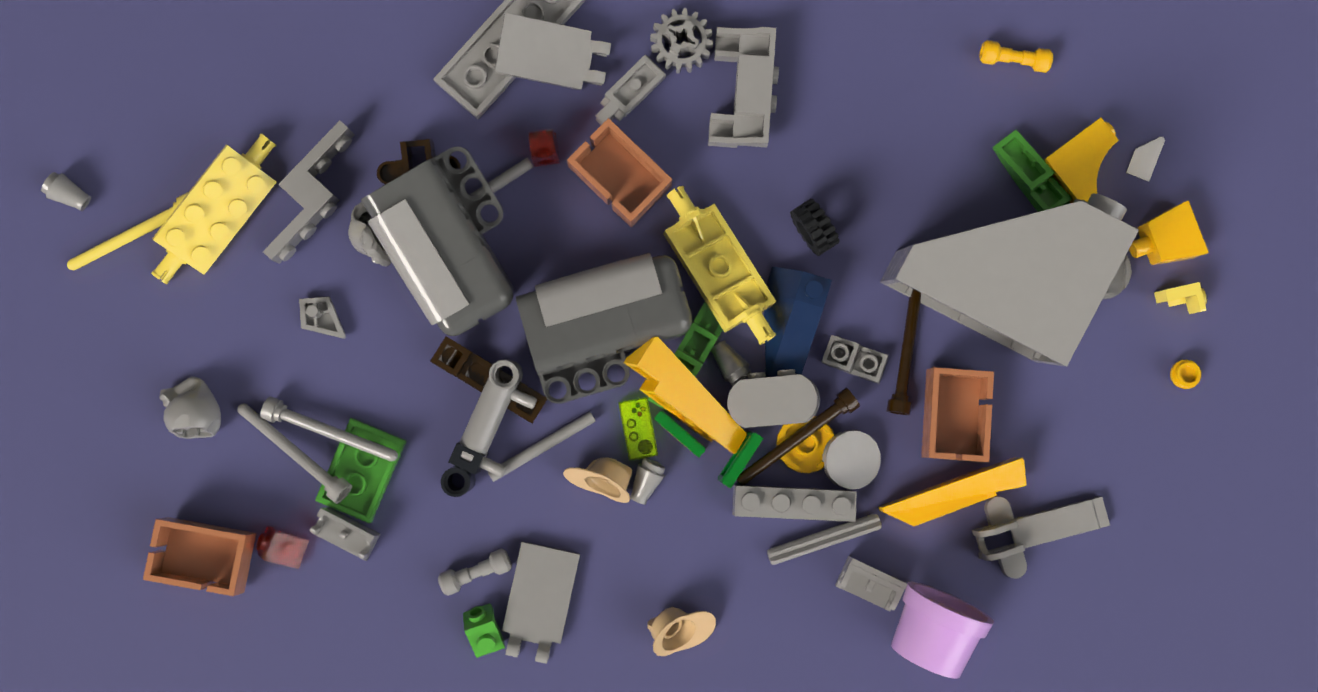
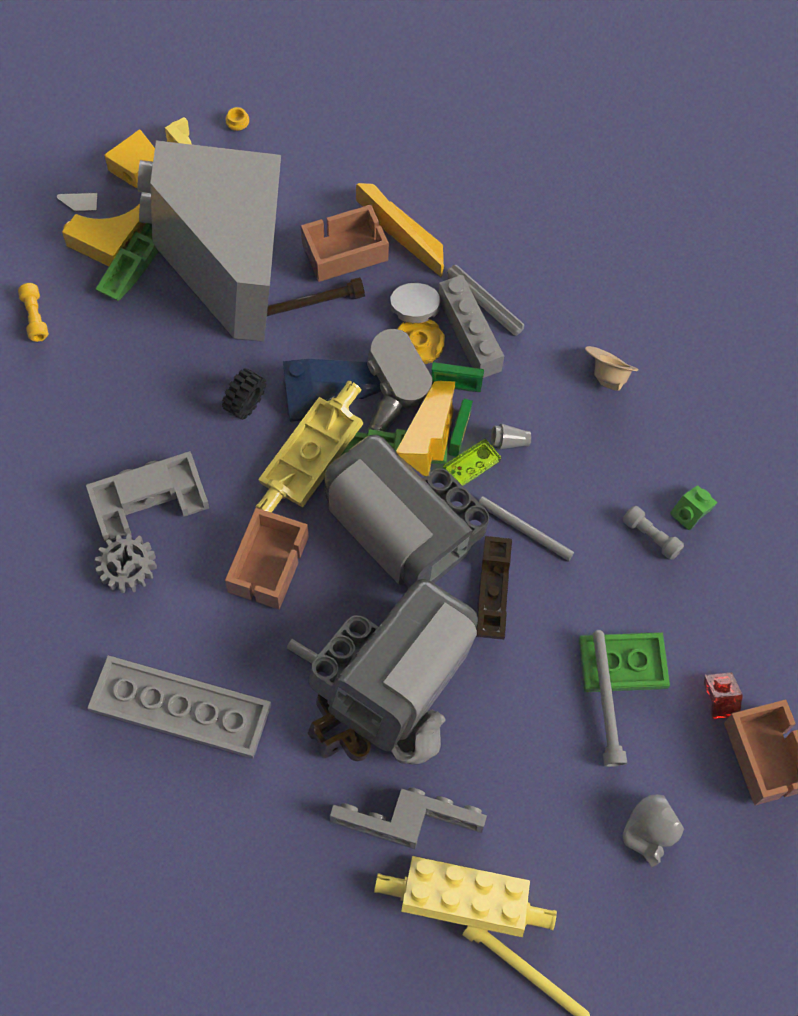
camera: 110 degrees left, 20 degrees down
(320, 316) = (513, 757): light grey piece -> none
(335, 487) = (650, 667): light grey piece -> none
(345, 533) = (681, 647): light grey hinge -> none
(472, 450) = (561, 575): light grey piece -> none
(539, 598) = (645, 477): light grey tile -> none
(544, 147) = (272, 632): clear red leg -> none
(548, 52) = (185, 664): light grey tile -> none
(603, 477) = (523, 464): tan piece -> none
(630, 90) = (189, 586): light grey hinge -> none
(842, 404) = (374, 322): dark brown piece -> none
(855, 359) = (335, 331): light grey slope -> none
(870, 584) = (500, 256): light grey hinge -> none
(938, 630) = (510, 192): lavender piece -> none
(1035, 529) = (412, 182): light grey piece -> none

